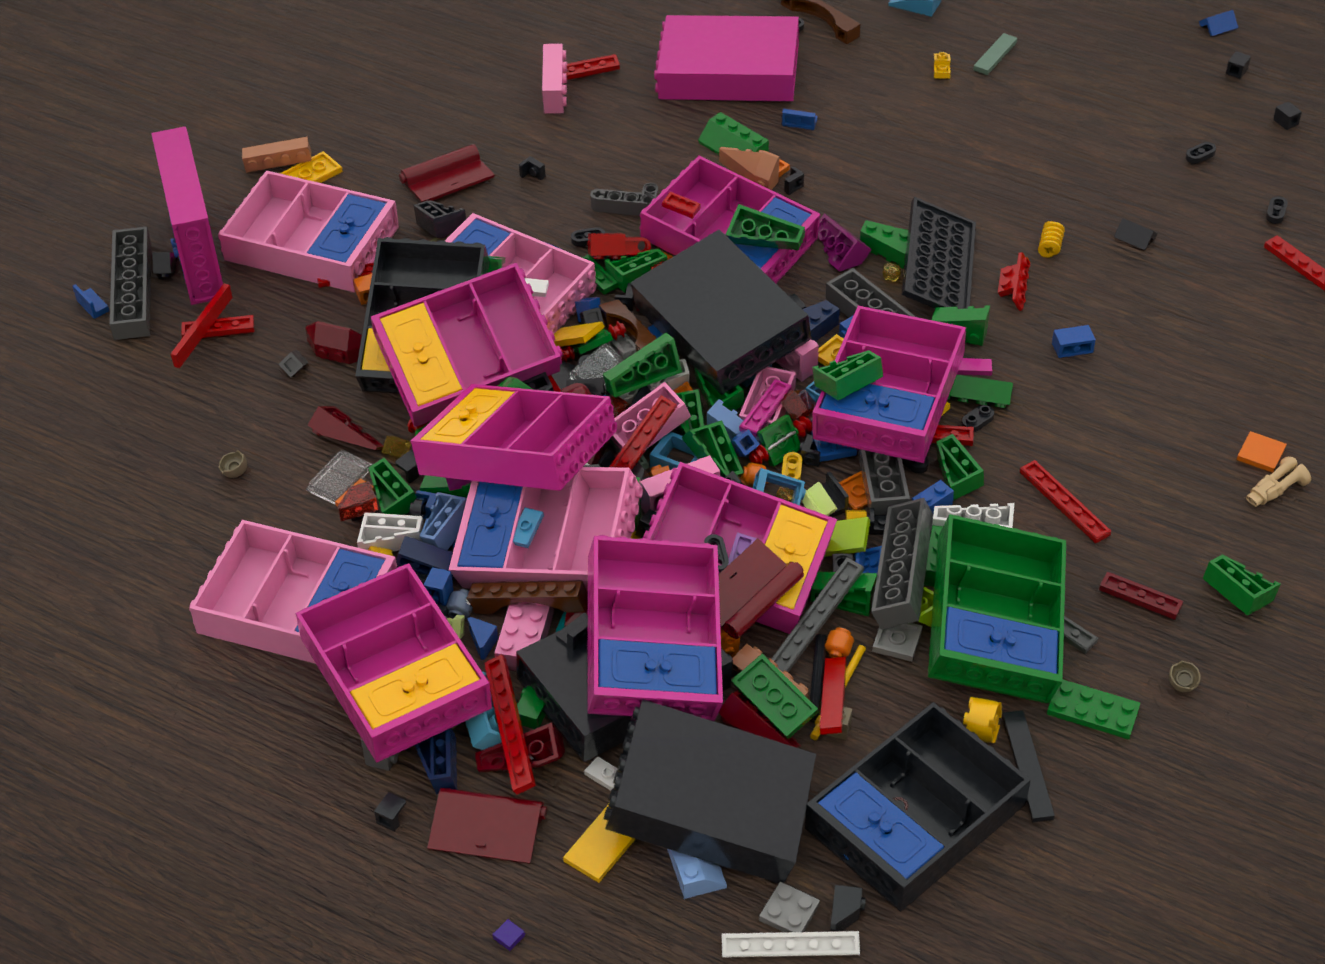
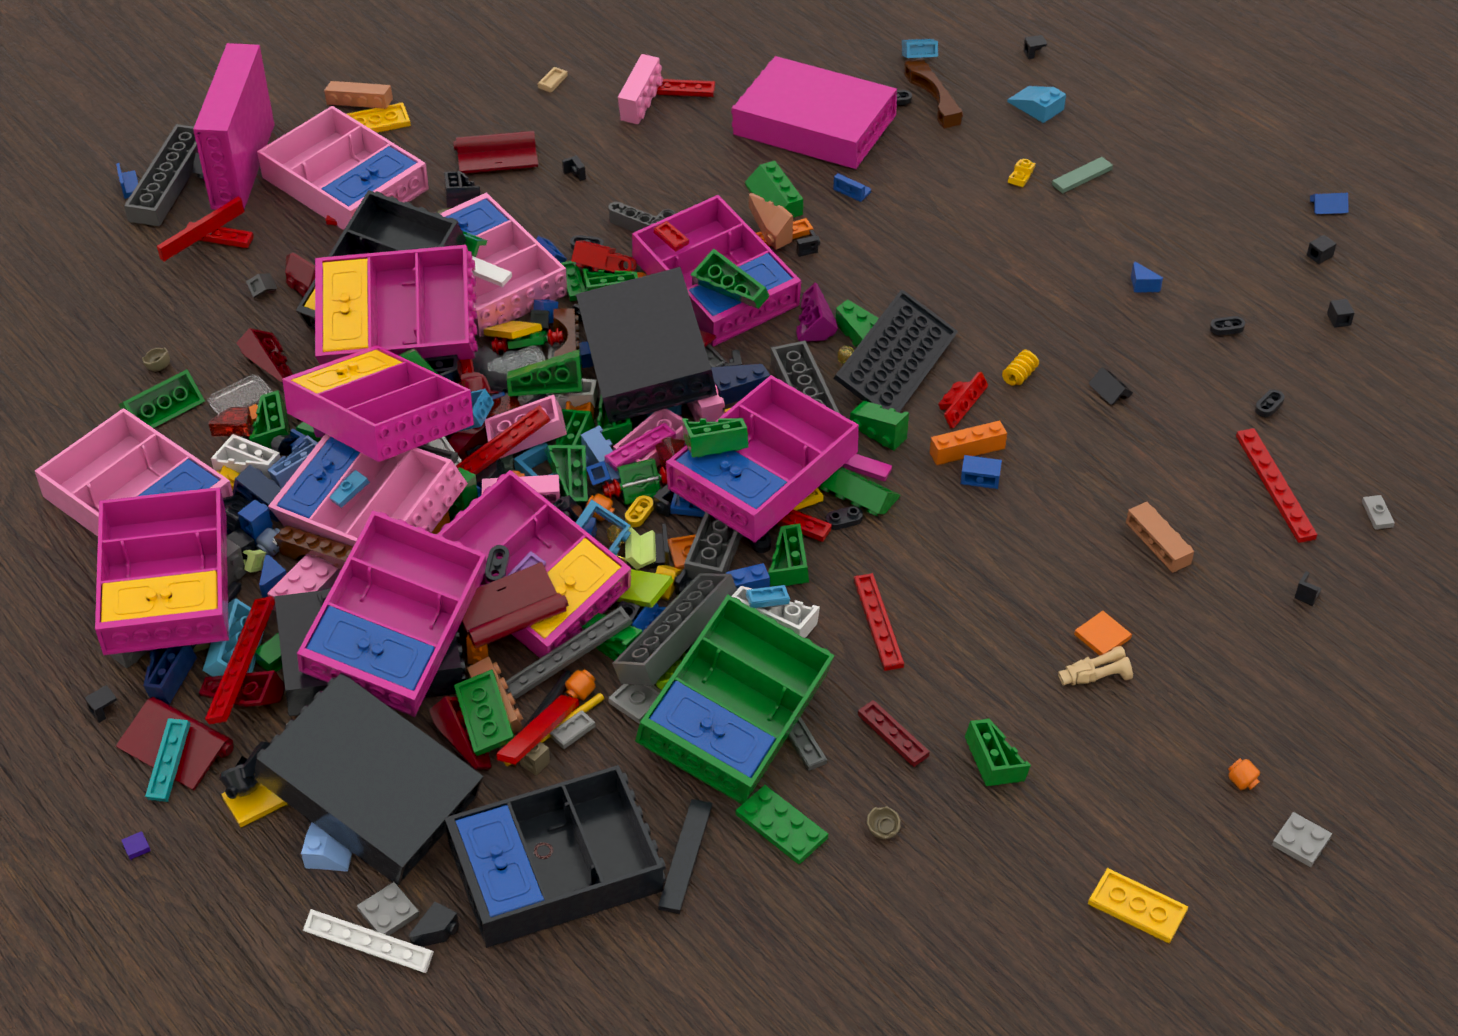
camera: 20 degrees right, 0 degrees up
(267, 499) = (165, 400): none -> green slope
(456, 92) = (552, 79): none -> tan tile
(494, 842) = (167, 760): none -> teal plate
(584, 836) = (241, 779): none -> black piece
(857, 685) = (572, 729): none -> light grey plate
(969, 506) = (767, 596): none -> dark azure plate
(983, 718) = (664, 798): yellow brick -> none
(1047, 318) = (968, 442): none -> orange brick
(1107, 131) = (1145, 279): none -> blue slope
(1258, 352) = (1160, 537): none -> nougat brick

